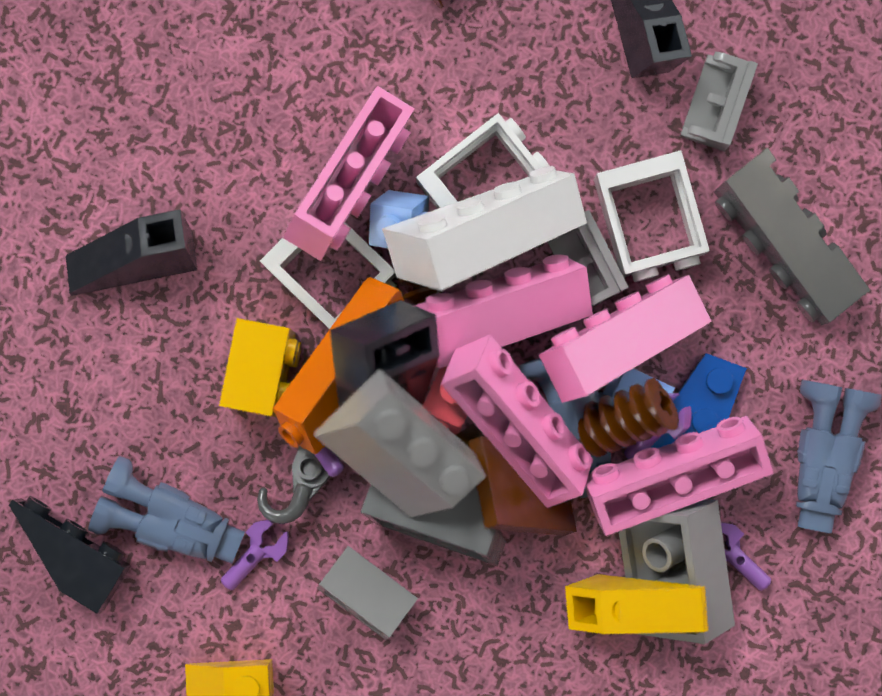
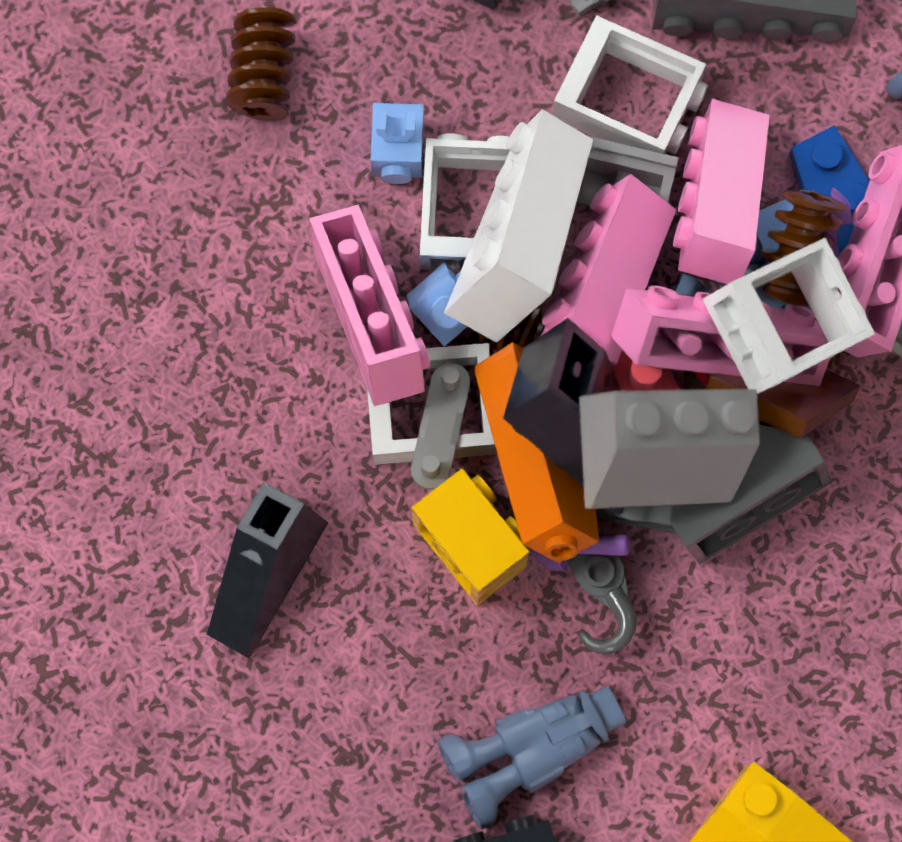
camera: 50 degrees left, 10 degrees down
(255, 554) = (634, 695): medium lavender bar -> none
(314, 288) = (440, 426): none -> light grey piece
(367, 593) = (759, 621): light grey hinge -> none
(484, 94) = (397, 142): none -> light blue brick
(521, 440) = (753, 337): none -> white window

